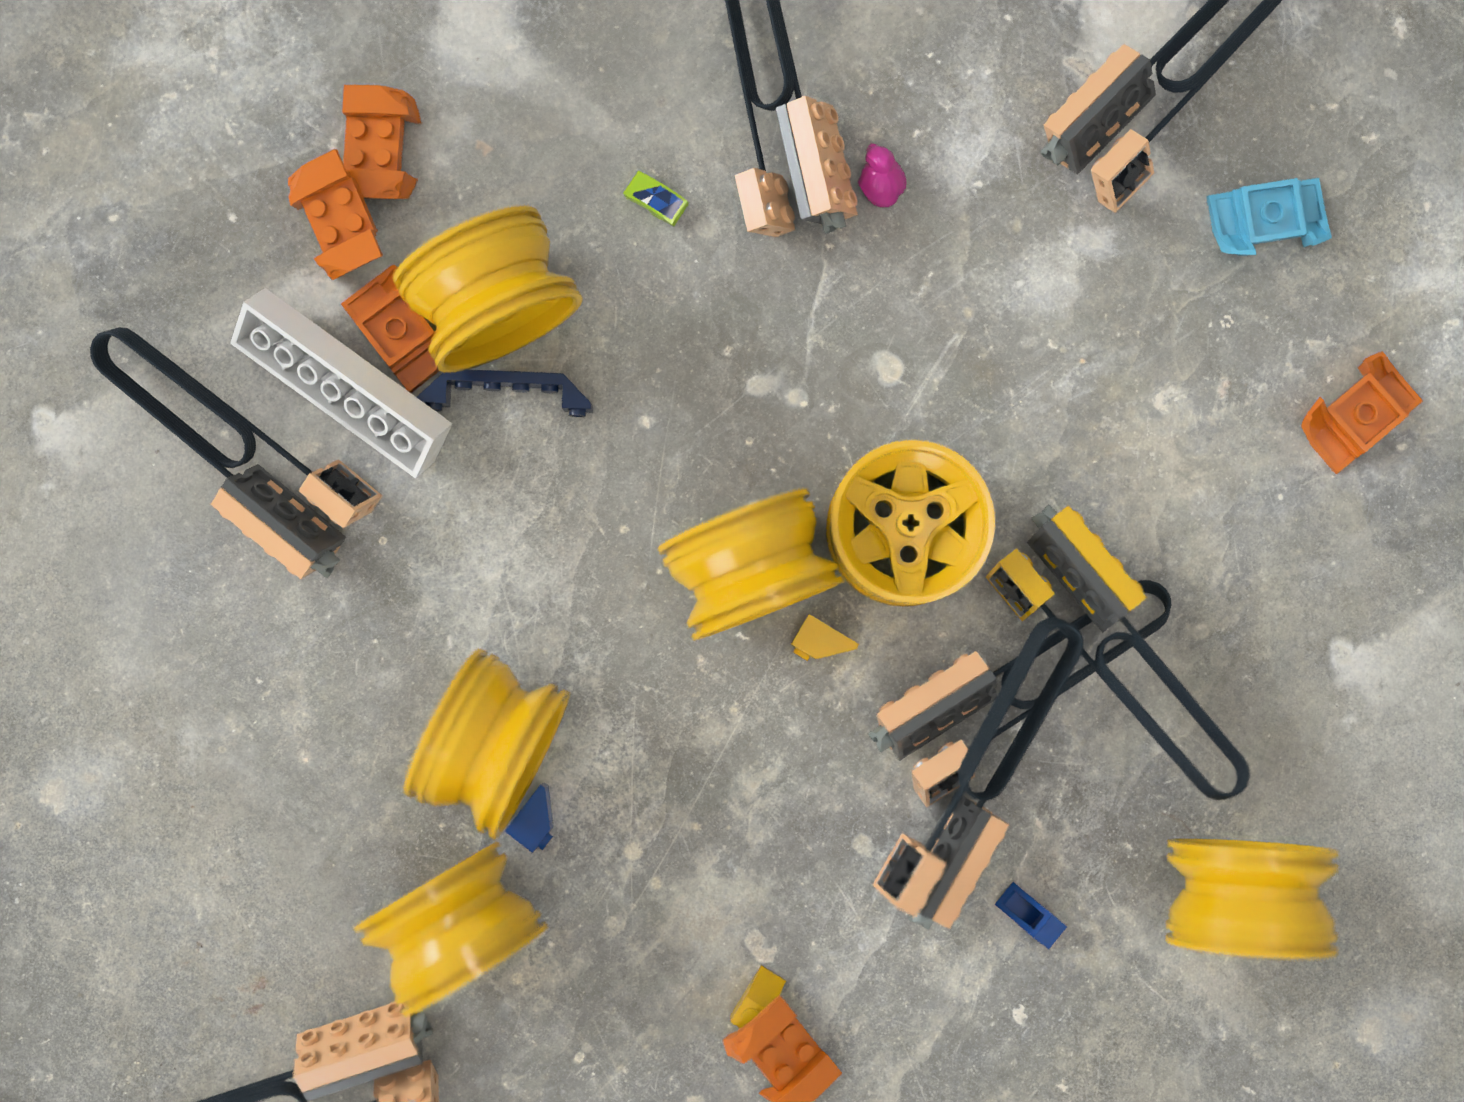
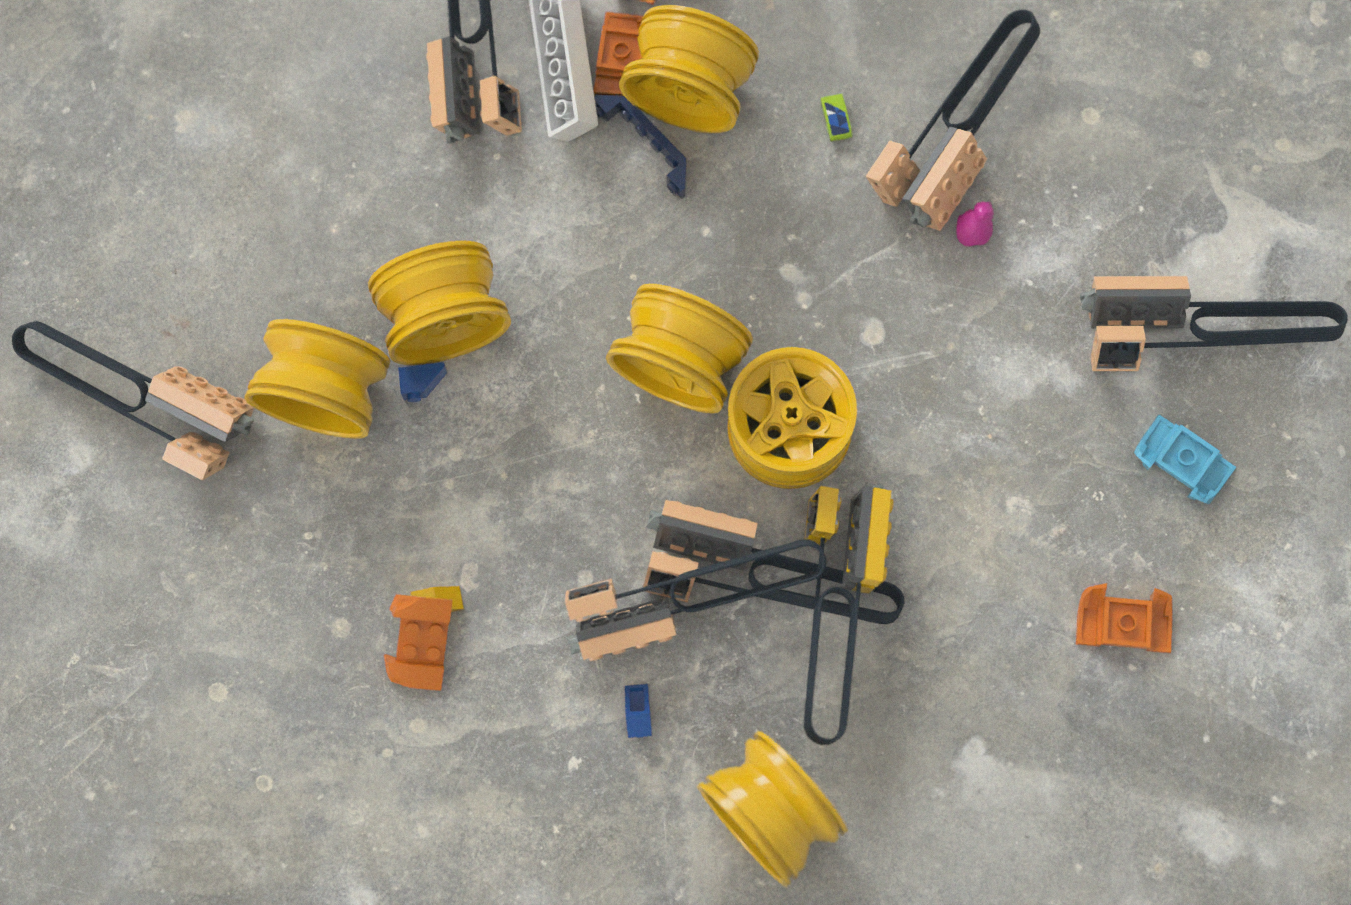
camera: 50 degrees right, 10 degrees down
(820, 640) = (678, 440): yellow slope -> none

